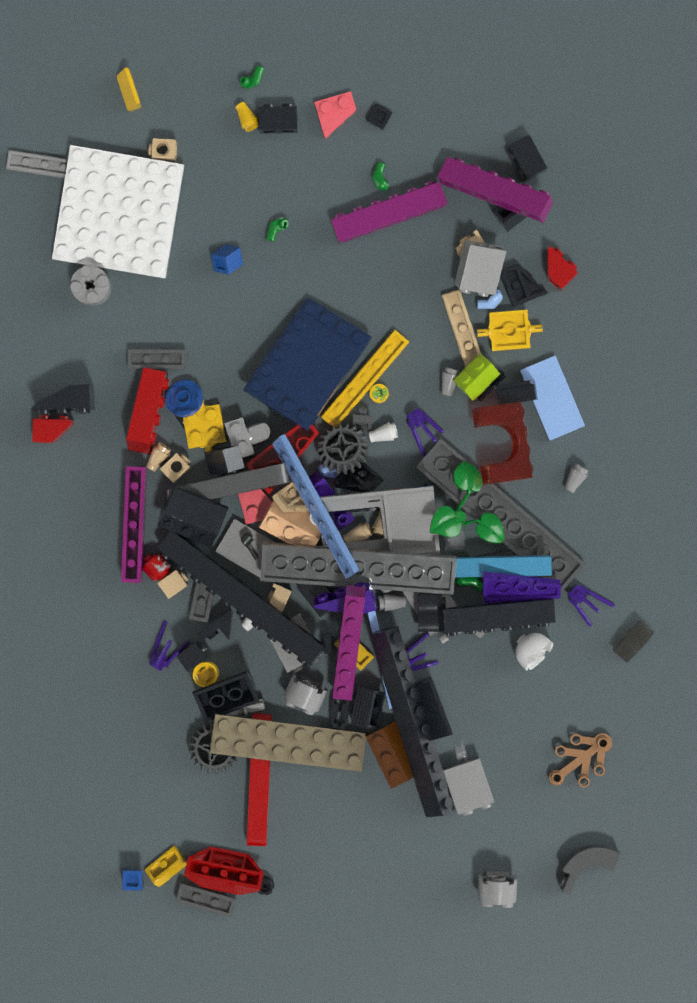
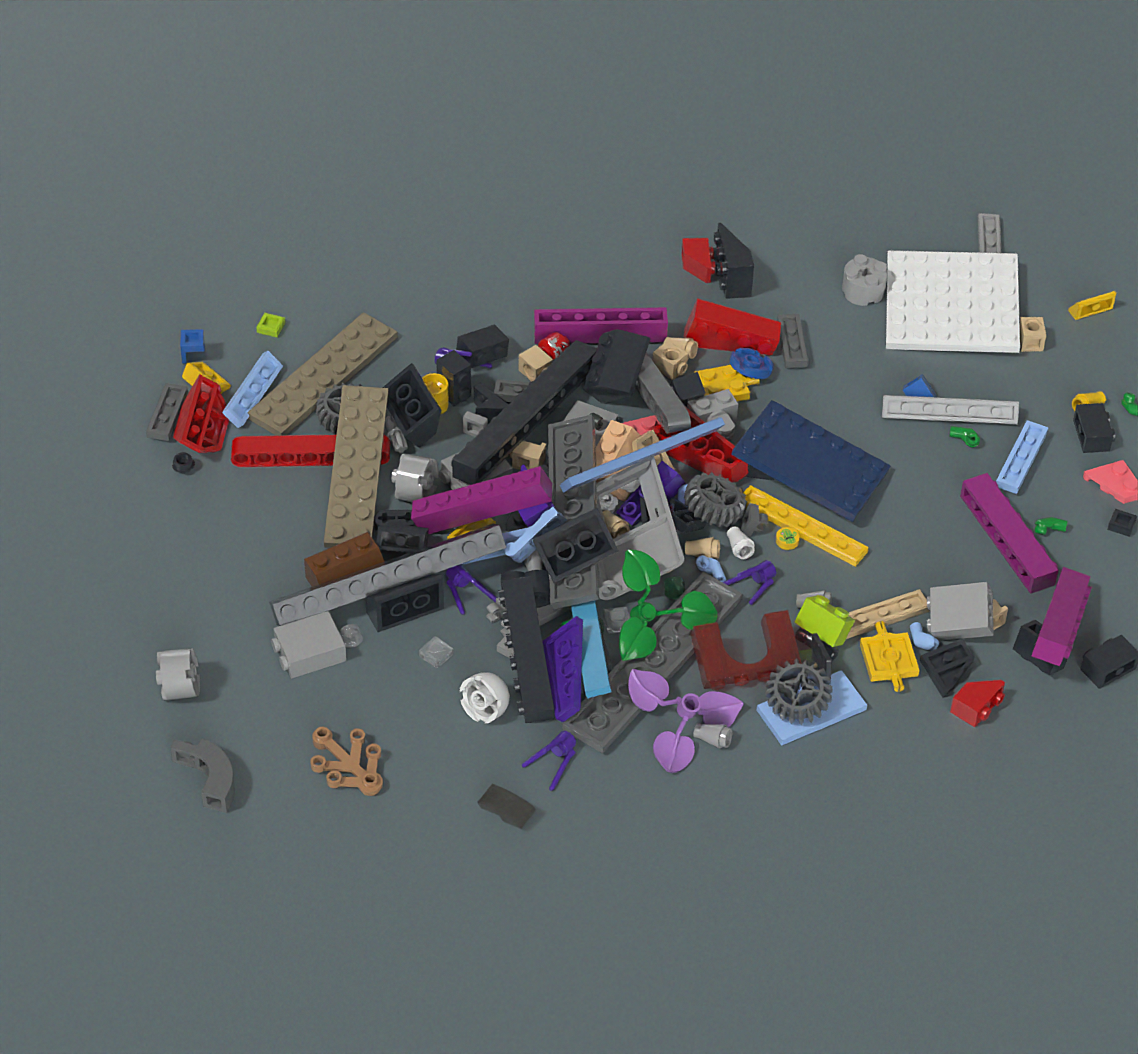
camera: 80 degrees right, 40 degrees down
(103, 810) = (270, 325): none -> lime tile
(151, 628) = (484, 344): none -> black brick
(167, 766) = (331, 365): none -> dark tan plate
(185, 827) = (252, 389): none -> light blue plate
(239, 639) = (473, 423): none -> light grey plate
(248, 236) = (950, 409): none -> light grey tile
(305, 185) = (1021, 457): none -> light blue plate
(385, 602) = (524, 545): none -> light blue plate
(388, 462) = (709, 547): none -> tan cone
(406, 458) = (711, 567): none -> light blue arm
(408, 571) = (575, 545): none -> black slope
(477, 685) = (436, 652): none -> clear plate
(549, 415) = (780, 684): none -> dark grey gear
(588, 508) = (672, 750): none -> medium lavender plant

